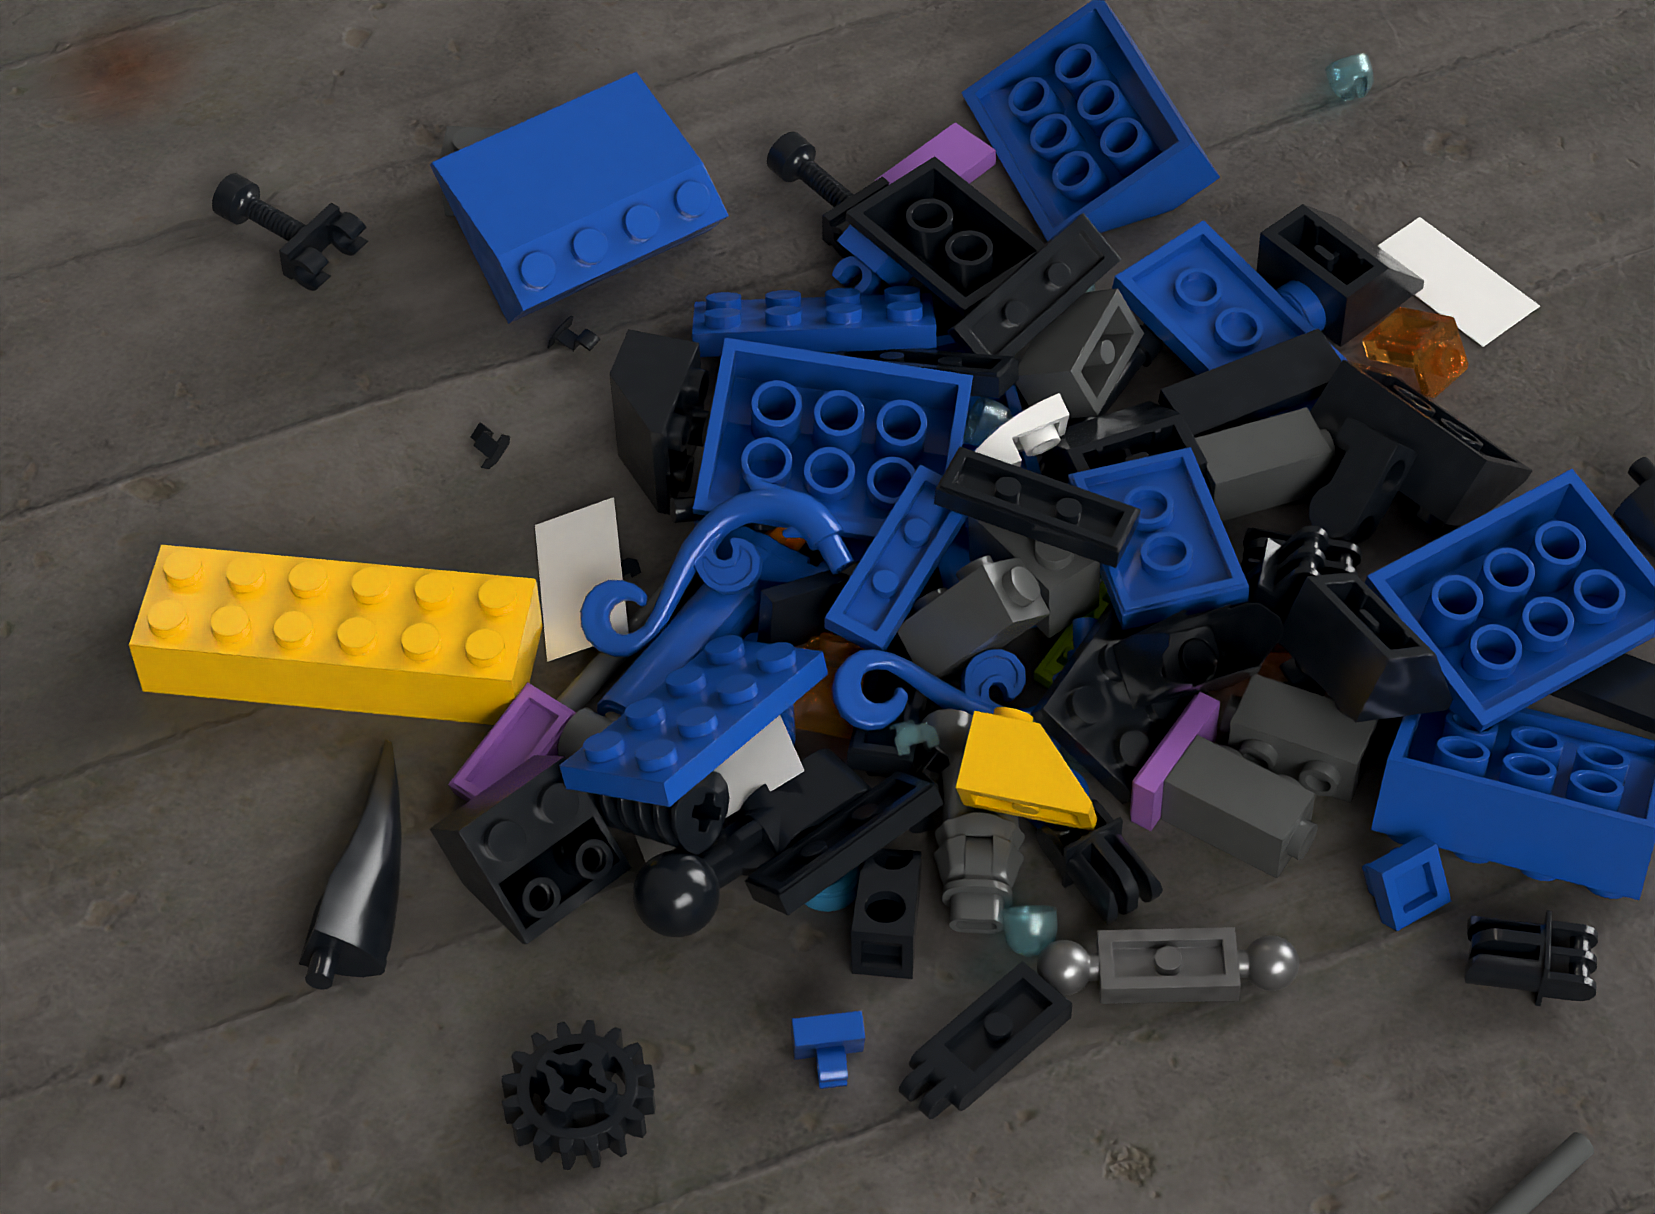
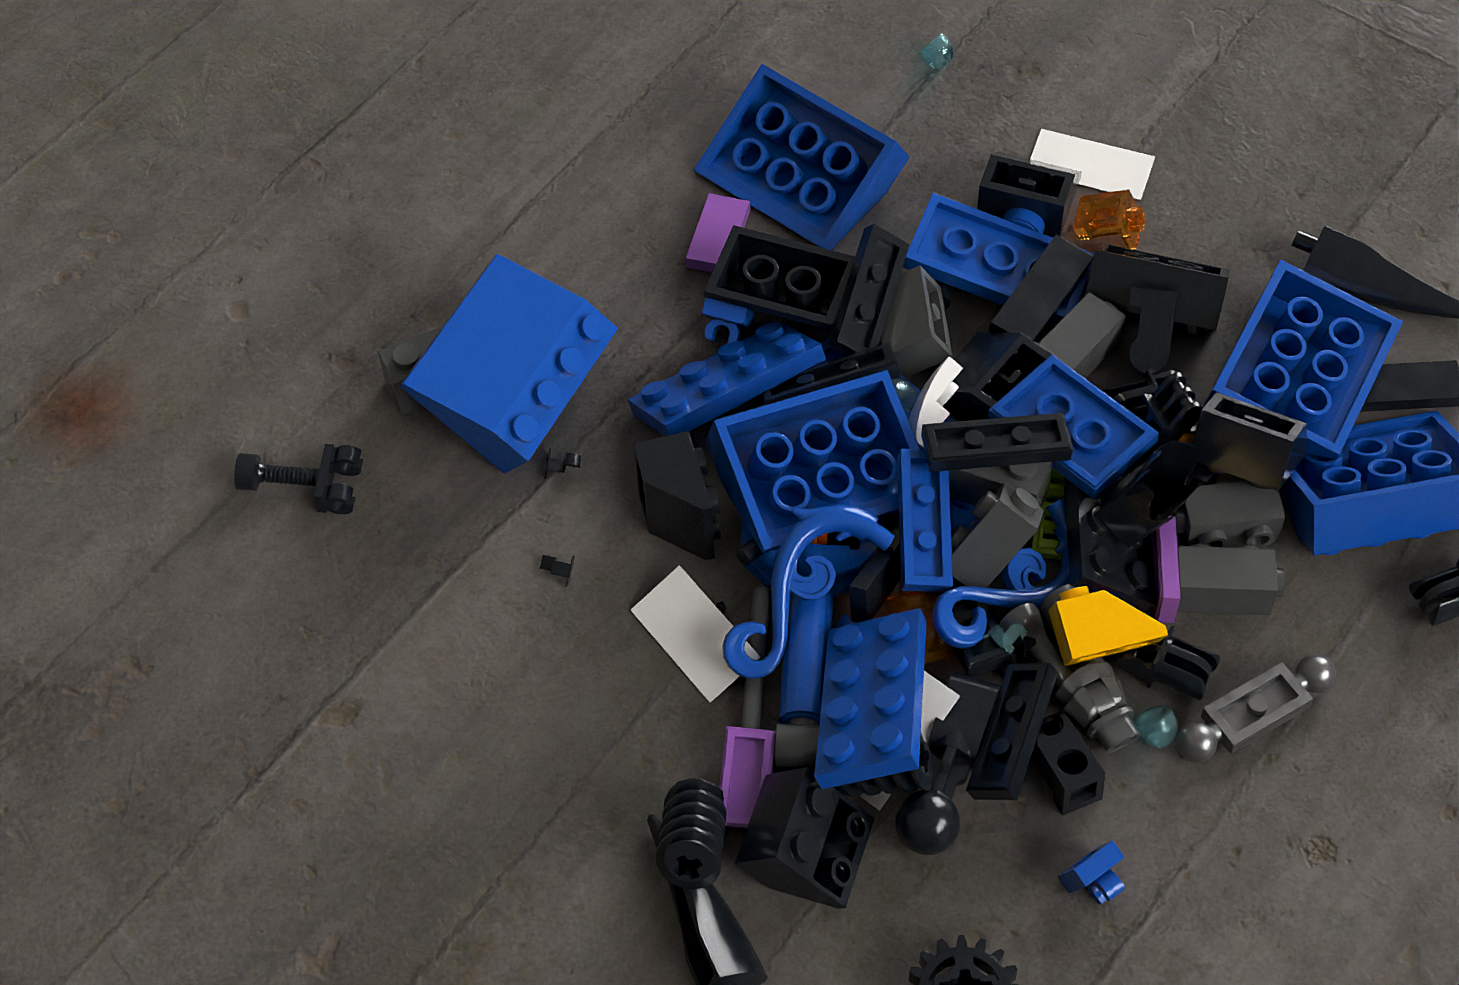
camera: 30 degrees left, 5 degrees up
(336, 634) = (566, 757): yellow brick -> none
(399, 770) = (692, 834): none -> black piece
(794, 159) = (687, 301): black bar -> none
(985, 1041) = (1186, 816): black hinge -> none
(1407, 882) = (1356, 578): blue tile -> none

